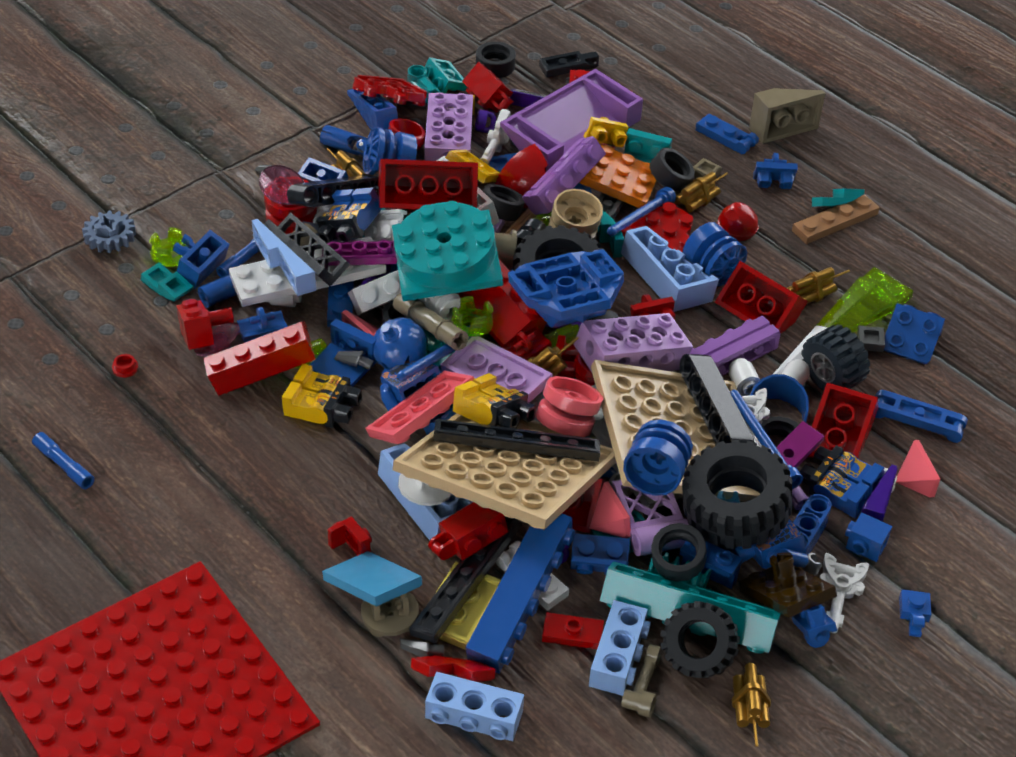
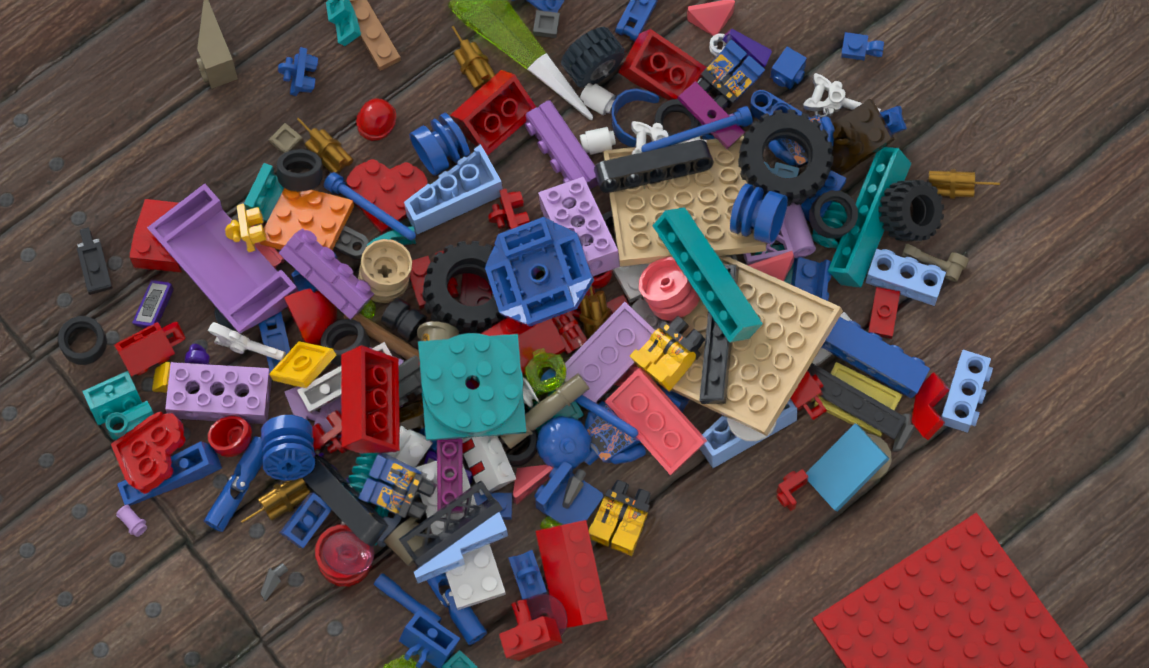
camera: 85 degrees left, 25 degrees up
(327, 94) = (132, 521): none -> lavender pin
(577, 412) = (707, 274): none -> teal brick
(726, 134) = (225, 111): blue plate -> none

